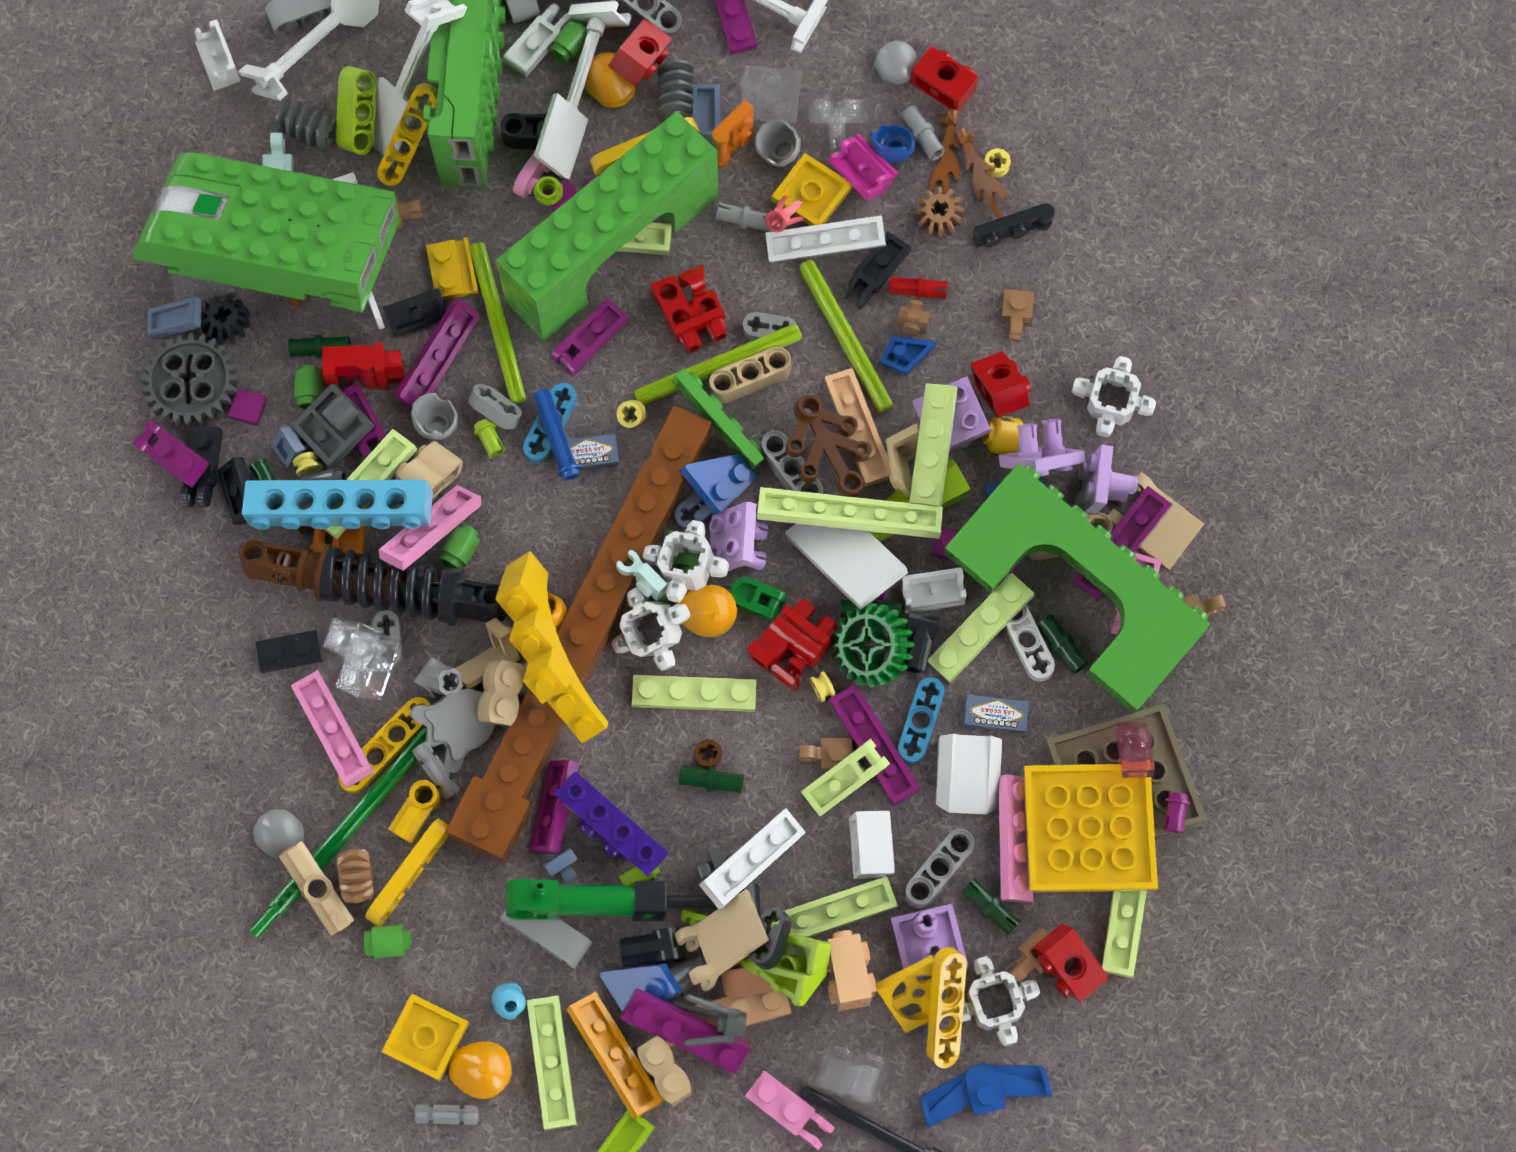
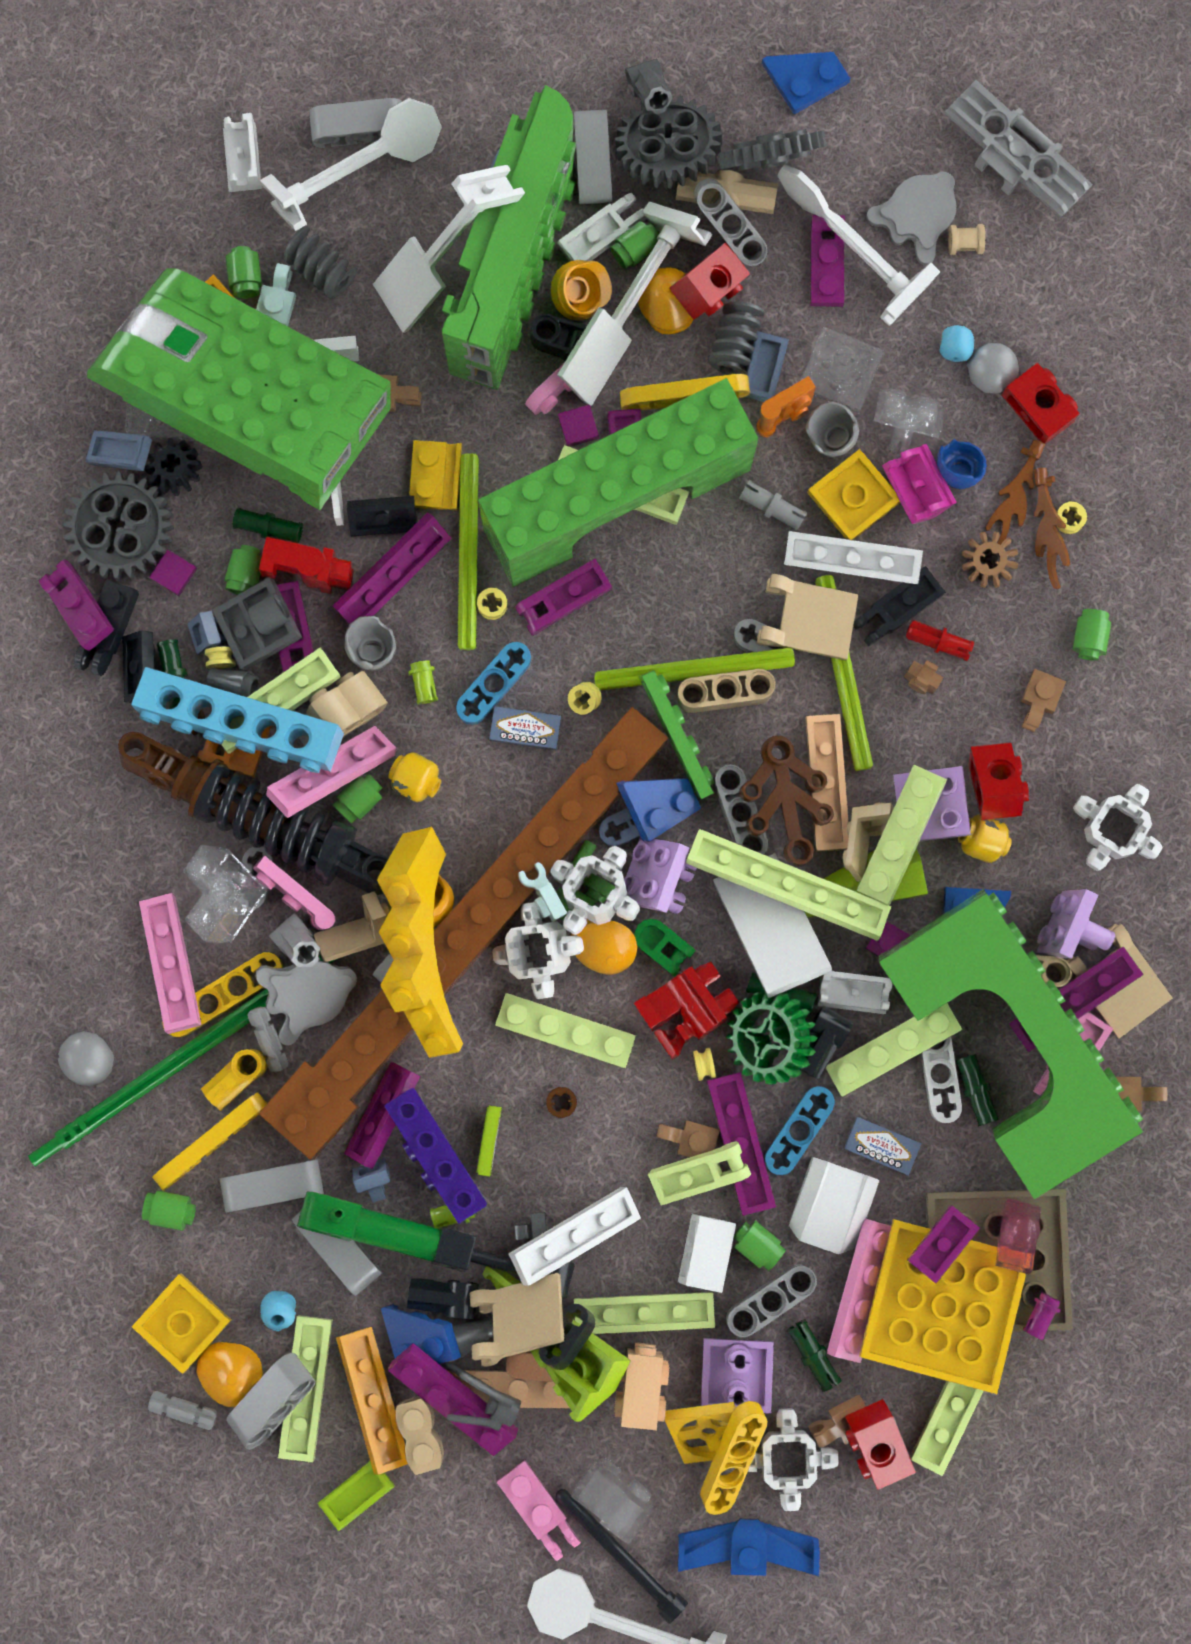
camera: 15 degrees right, 10 degrees up
(243, 146) = (243, 272): none -> bright green brick
(288, 651) = (147, 861): black plate -> none
(326, 906) = (100, 1115): tan piece -> none
(353, 96) = (376, 264): lime beam -> none
(355, 876) = (152, 1132): medium nougat gear -> none
(406, 134) = (423, 310): yellow beam -> none
(425, 639) = (294, 894): none -> bright pink plate
(470, 894) = (270, 1185): none -> light grey beam
(495, 406) = (439, 648): light grey beam -> none
(501, 685) = (353, 985): tan brick -> none
(503, 516) = (414, 777): none -> yellow head
(523, 1078) = (270, 1401): none -> light grey beam
(525, 366) = (485, 611): none -> light yellow bush
(533, 87) = (580, 289): none -> light orange hat
(548, 183) = (567, 406): lime plate -> none
(556, 435) = (496, 702): blue axle -> none
(654, 802) = (489, 1140): none -> lime tile
(692, 317) = (678, 605): red hips -> none
(711, 779) = (556, 1131): dark green pin -> none
(780, 218) = (809, 521): coral piece -> none
(804, 297) = (812, 618): none -> tan flag
(860, 50) = (957, 343): none -> medium azure piece
(905, 353) = (903, 712): blue piece -> none
(914, 825) = (758, 1245): none -> bright green brick
(923, 132) = (998, 460): light grey pin -> none
(1014, 225) = (1068, 598): black plate -> none
(1042, 459) = (1018, 880): lavender plate -> none
(1043, 248) = (1092, 634): none -> bright green brick
(1072, 771) = (943, 1244): none -> magenta plate

